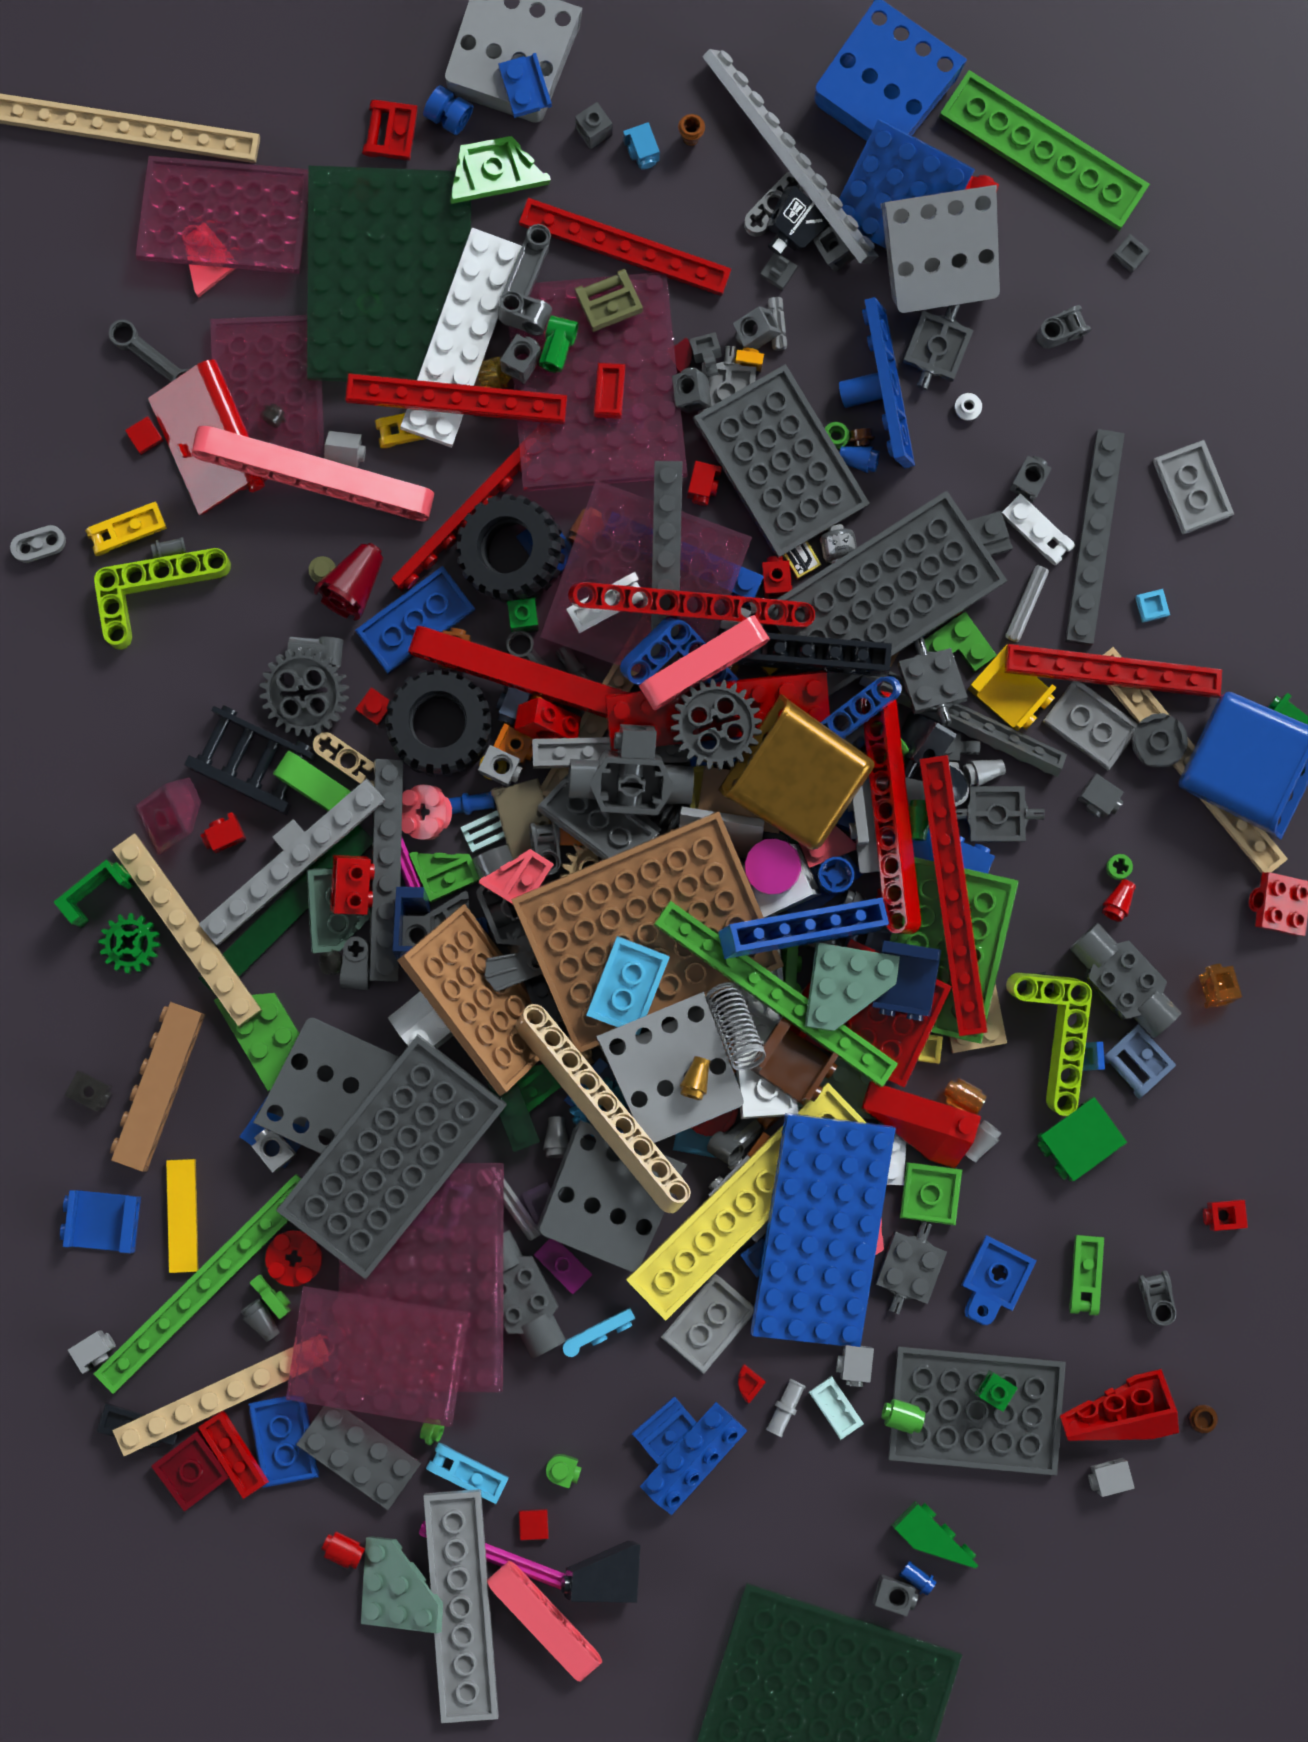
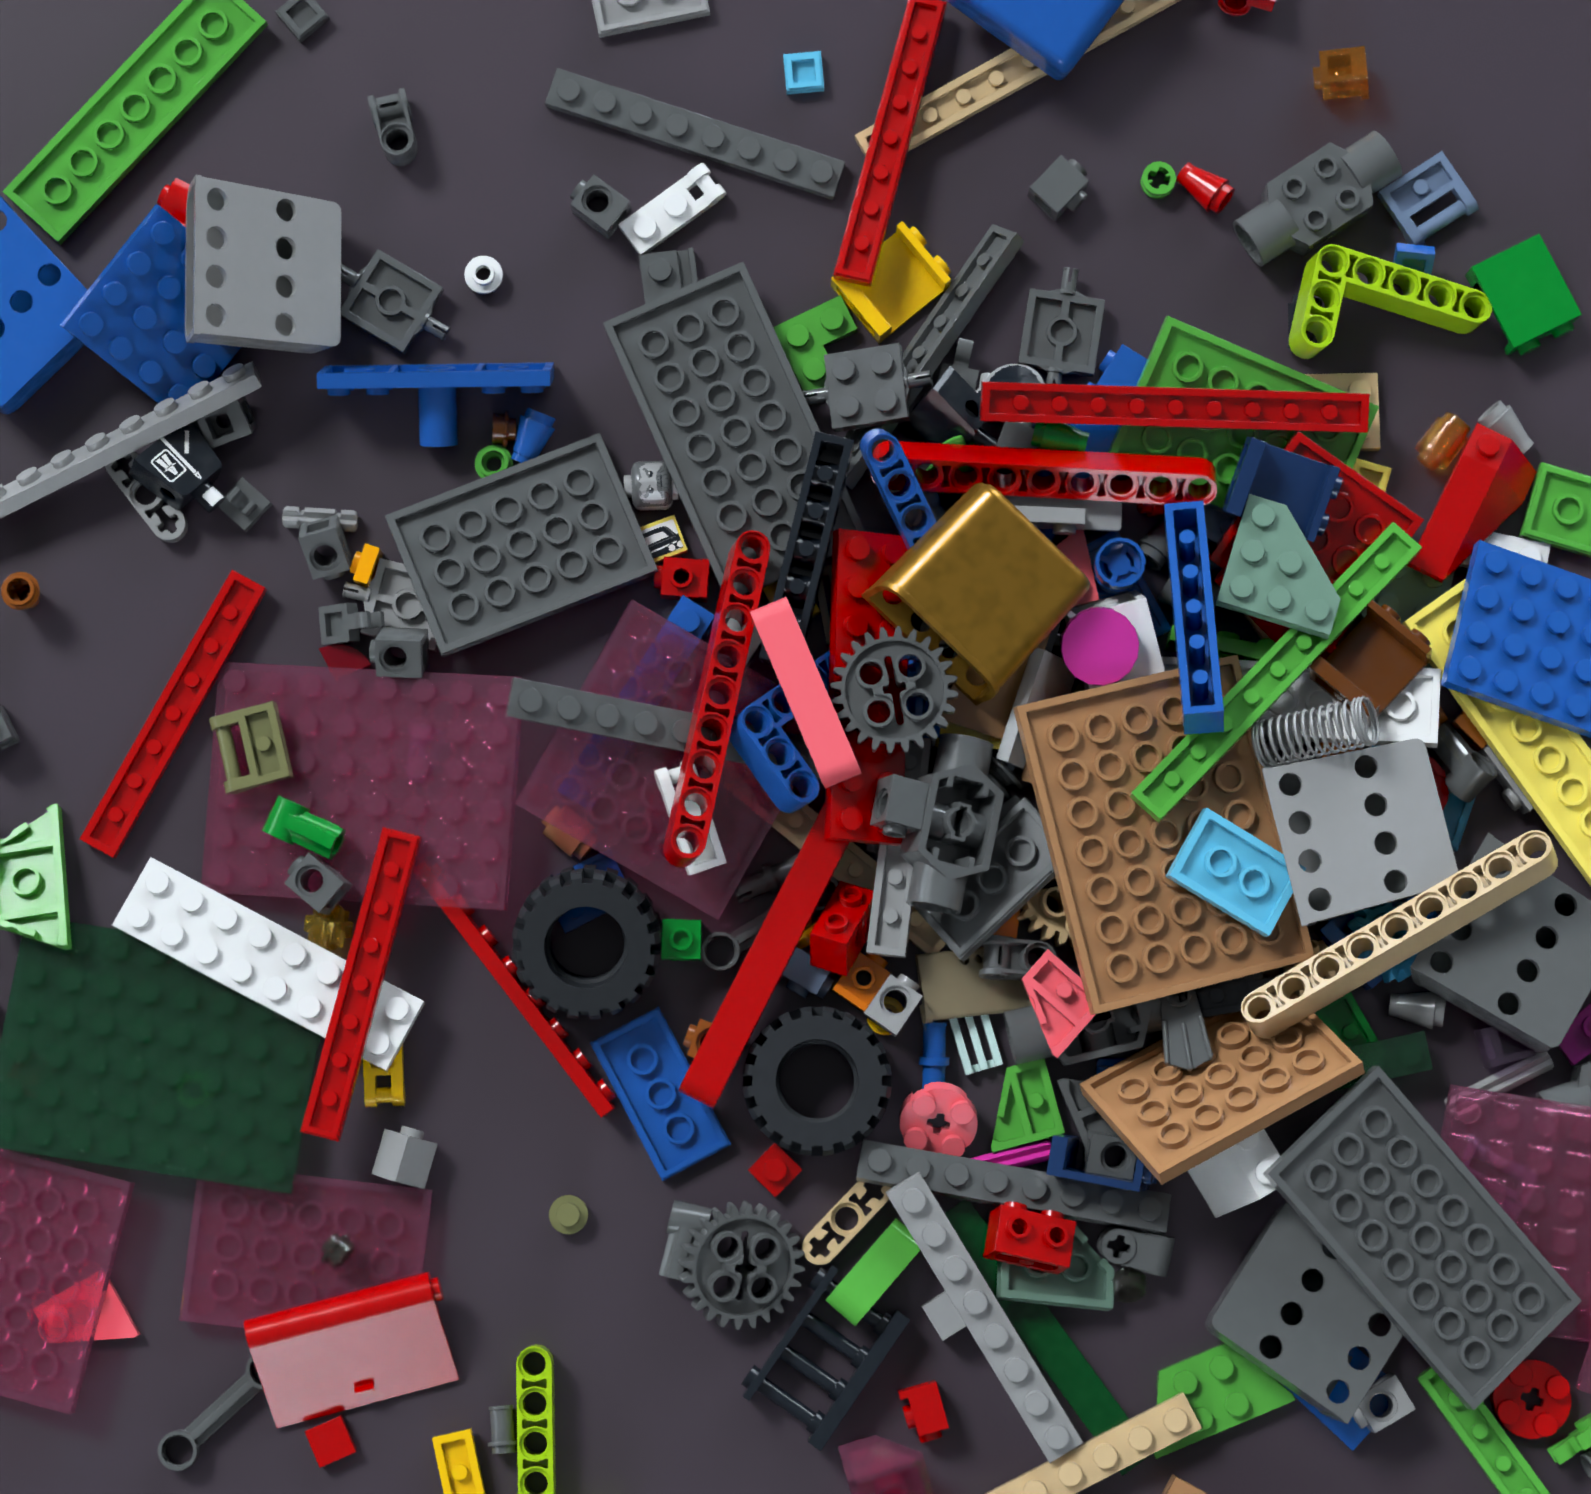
camera: 75 degrees left, 0 degrees up
(312, 473) = (434, 1206): coral beam -> none
(351, 581) = (594, 1173): dark red cone -> none
(529, 313) = (254, 859): dark grey piece -> none
(609, 390) = (384, 766): red tile -> none
(642, 145) = (32, 666): dark azure brick -> none
(696, 1079) = (1382, 797): pearl gold cone -> none
(703, 482) = (533, 658): red brick -> none
(982, 771) = (999, 342): light grey cone -> none
(1027, 603) = (774, 241): light grey axle -> none
(1091, 724) = (955, 183): light grey tile -> none
(1159, 740) = (996, 94): dark grey tile -> none

